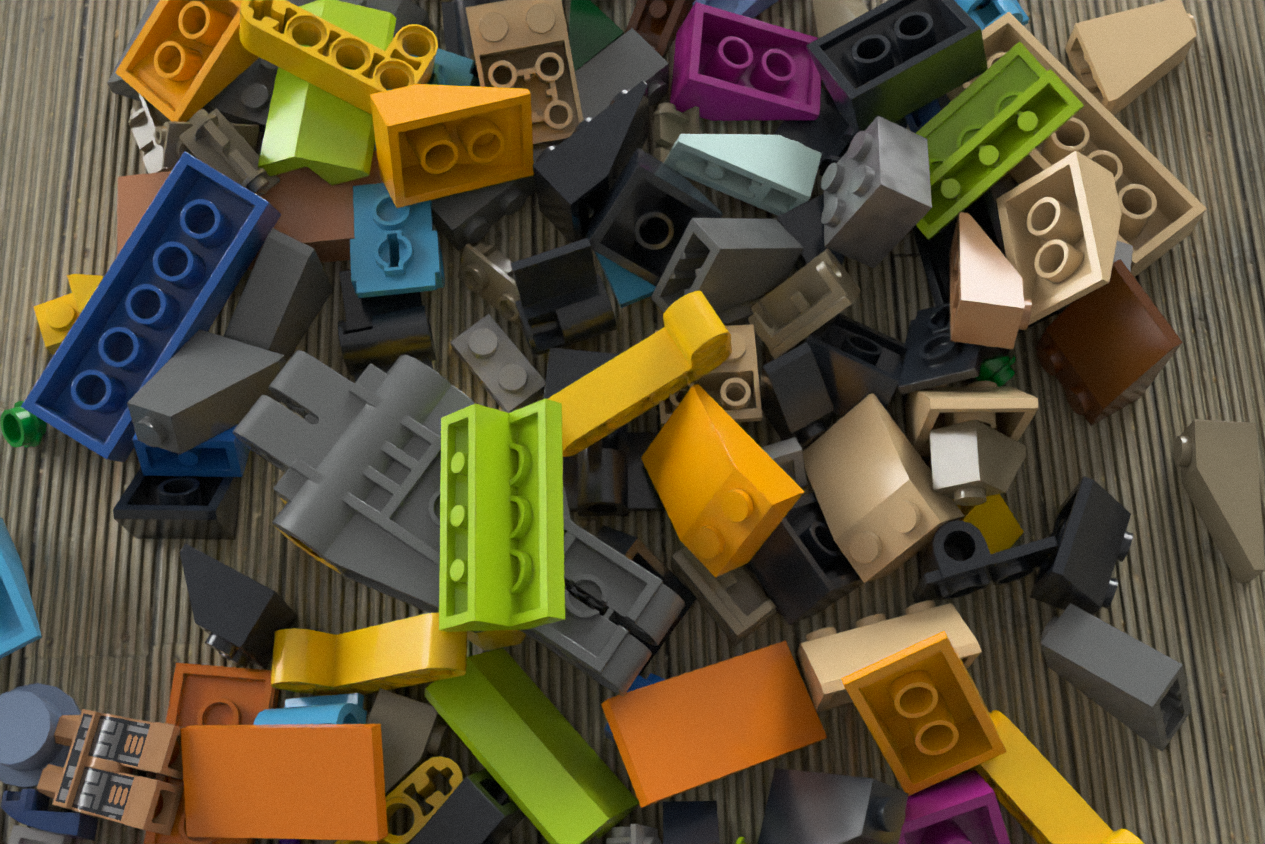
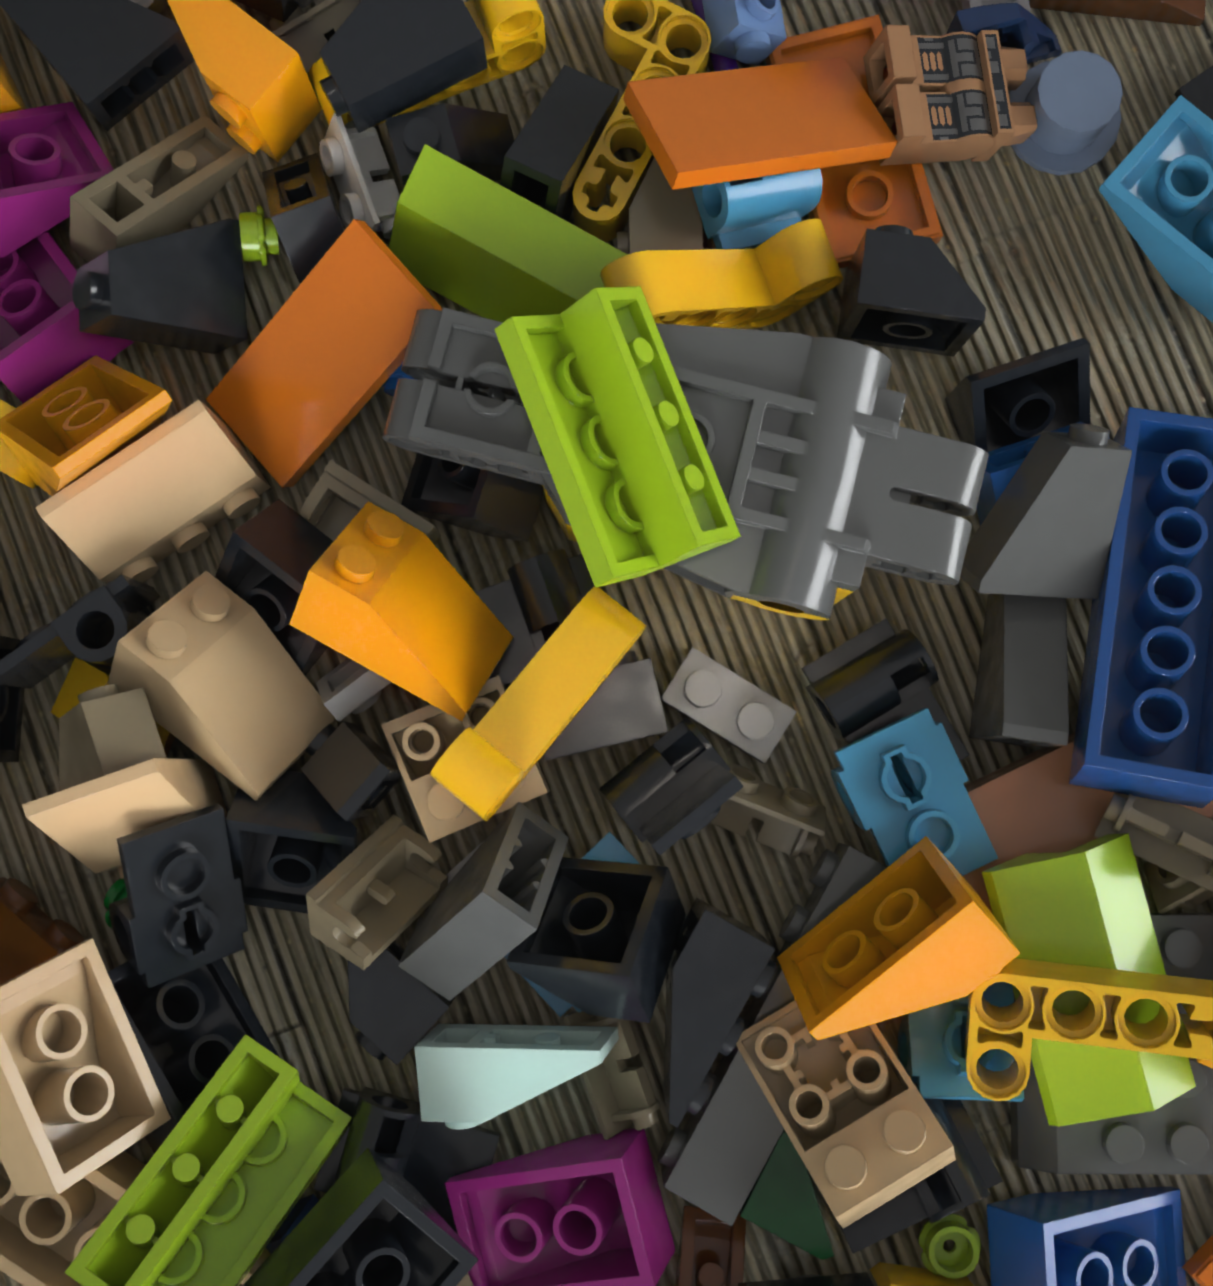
camera: 155 degrees right, 15 degrees up
(876, 192) = (320, 1069): flat silver brick -> none
(984, 290) = (146, 971): medium nougat slope -> none

